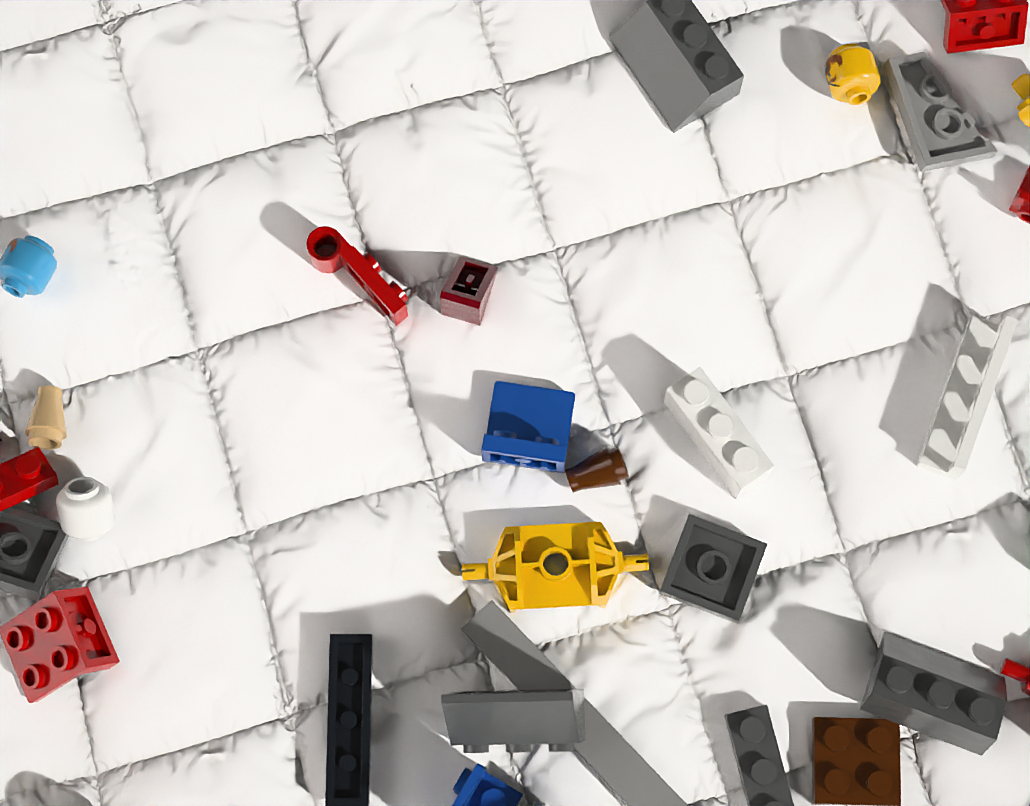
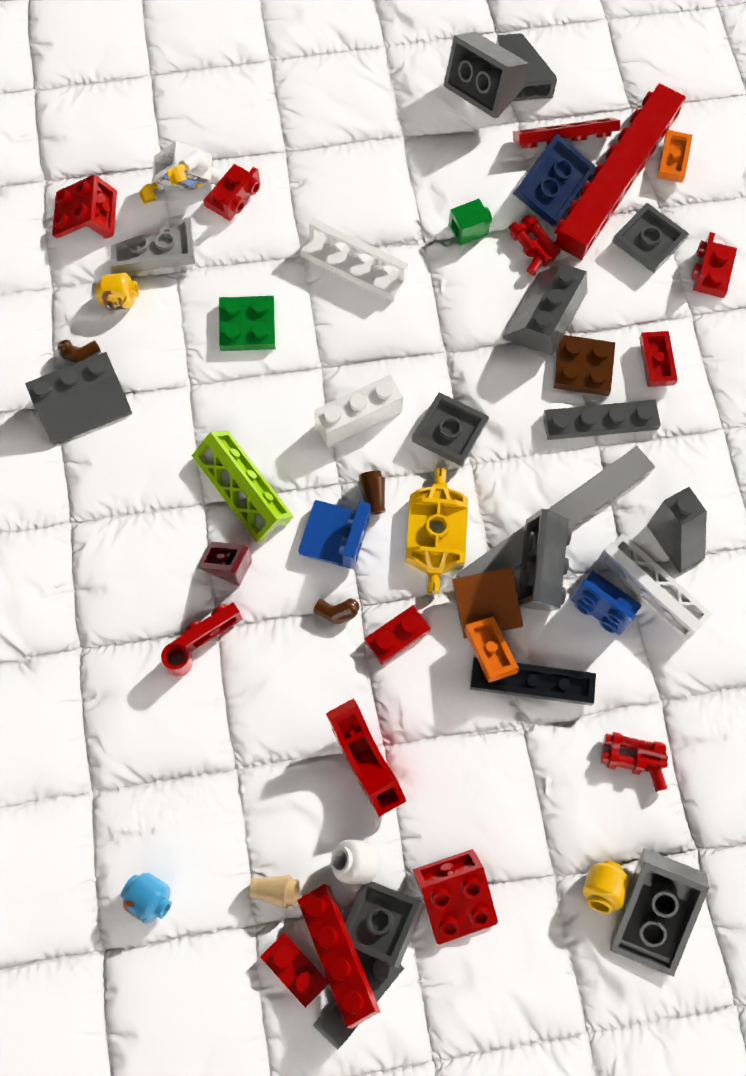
camera: 85 degrees left, 5 degrees down
(218, 507) = (365, 758): none -> red arch
(381, 653) = (491, 649): none -> orange plate
(396, 530) = (397, 635): none -> red plate
(416, 448) = (339, 613): none -> reddish brown arm
(453, 645) = (487, 596): none -> dark orange tile
(589, 295) = (244, 474): none -> lime fence
(748, 41) = (77, 354): none -> reddish brown arm
(838, 260) = (247, 323): none -> green plate

